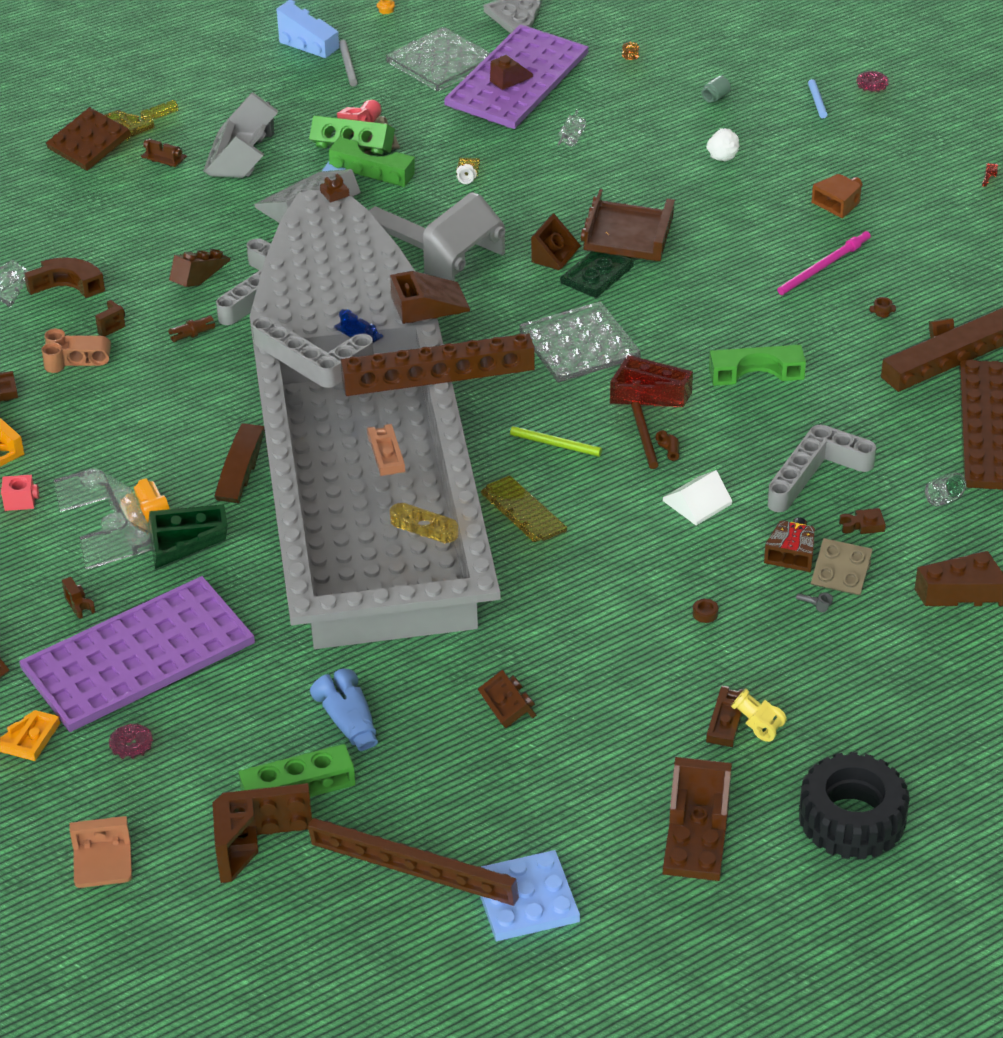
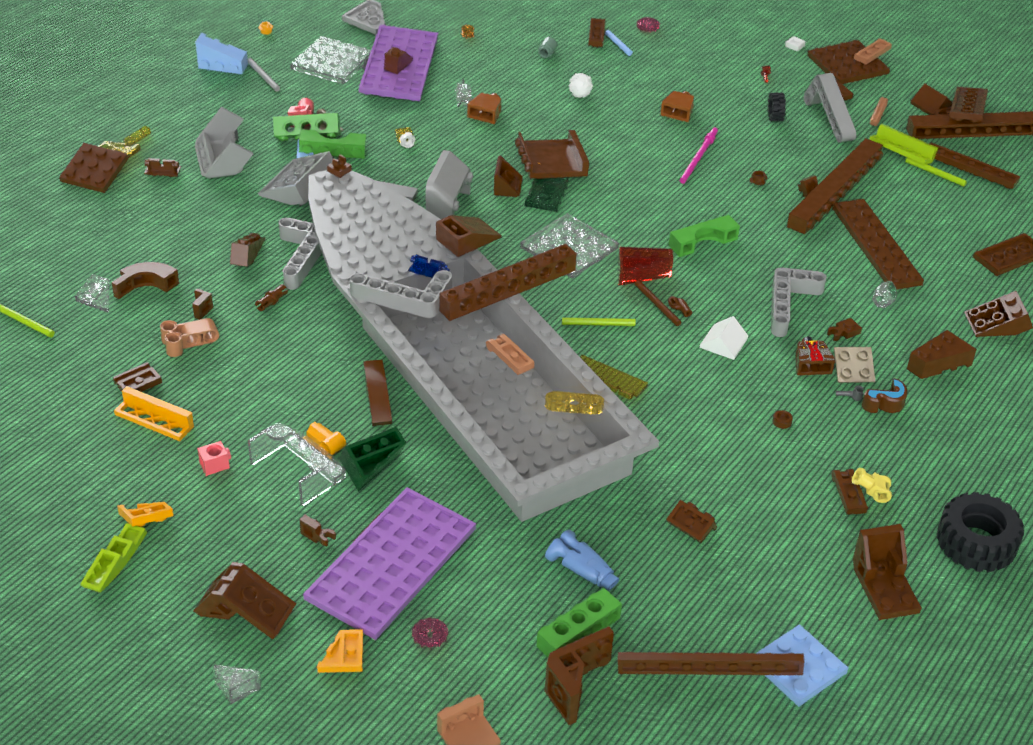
camera: 25 degrees left, 0 degrees up
(586, 151) = (485, 107): none -> dark orange torso
(795, 80) = (596, 33): none -> reddish brown plate
(853, 620) = (888, 401): none -> reddish brown animal
(965, 219) = (776, 106): none -> black tyre

